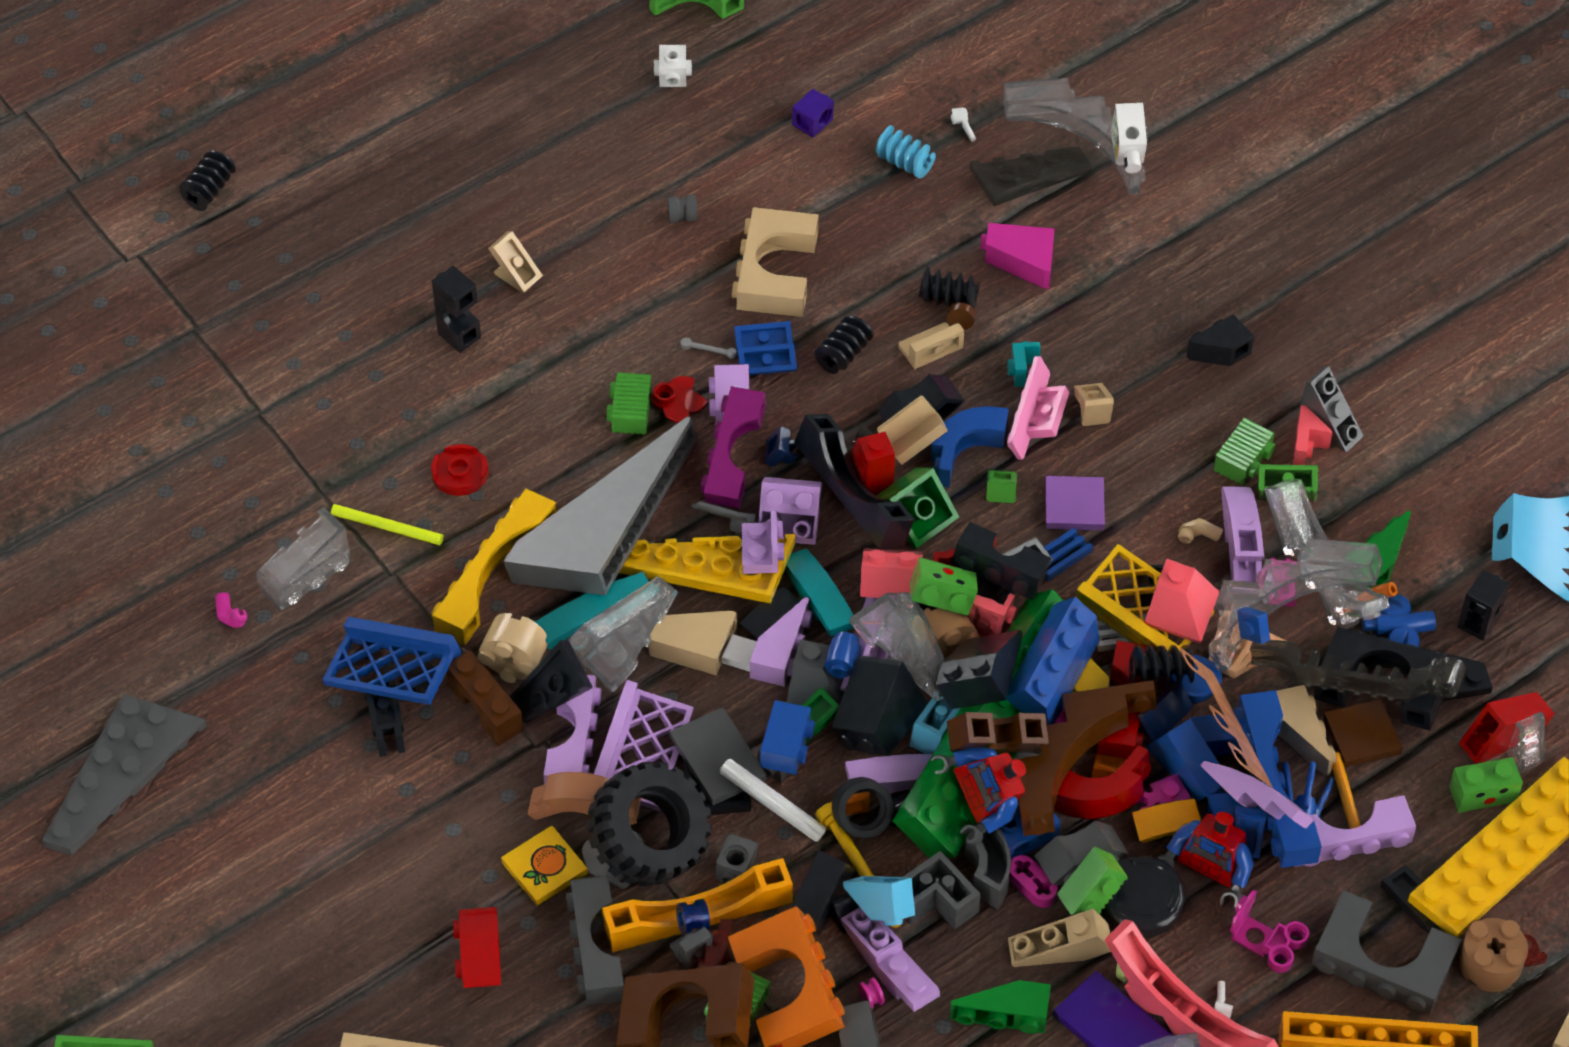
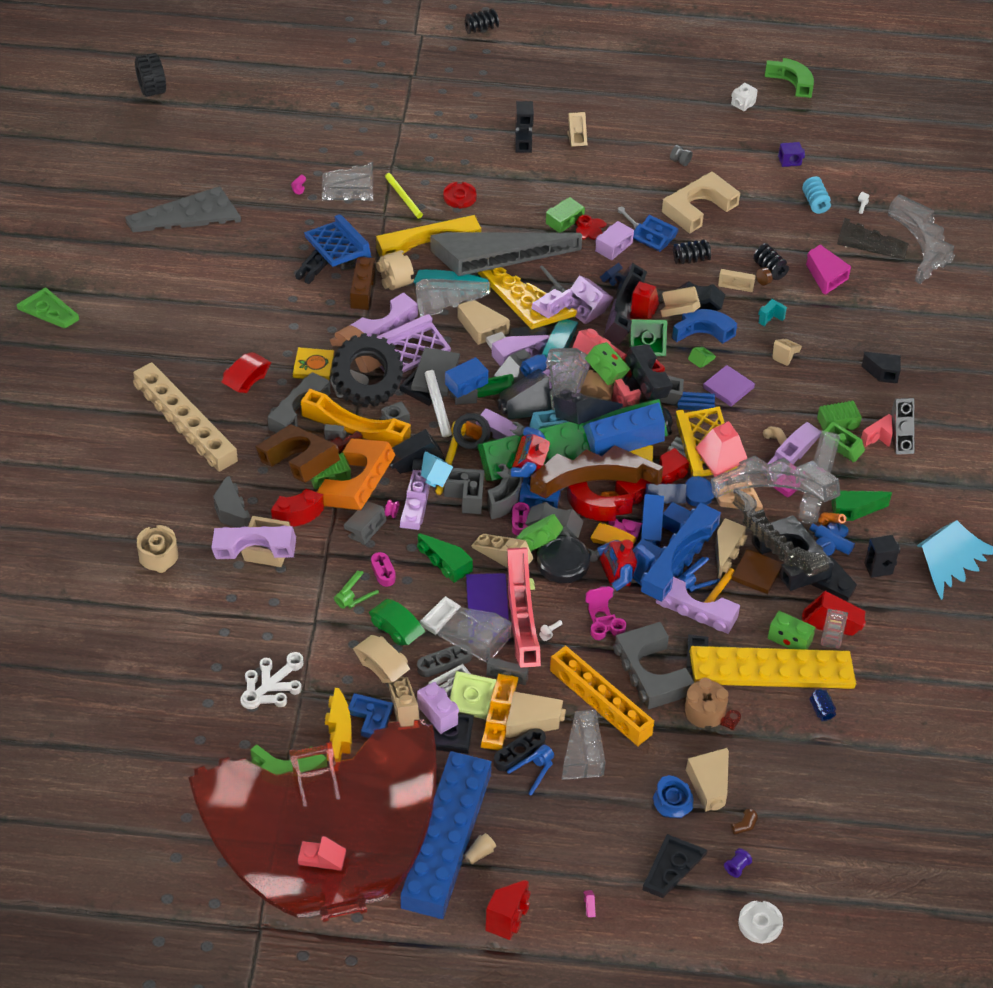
camera: 40 degrees right, 5 degrees down
(551, 683) = (392, 291): black wing -> none
(692, 916) = (346, 420): clear blue wheel -> none
(742, 414) = (603, 244): magenta arch -> none
(1011, 734) = (567, 441): reddish brown arch -> none
(1038, 410) = (753, 335): bright pink bracket -> none
(1131, 143) = (930, 252): white torso -> none
(1160, 663) = (679, 468): black piece -> none
(1234, 727) = (678, 508): nougat piece -> none
(1252, 792) = (655, 545): lavender slope -> none
(1253, 625) = (743, 480): blue plate -> none

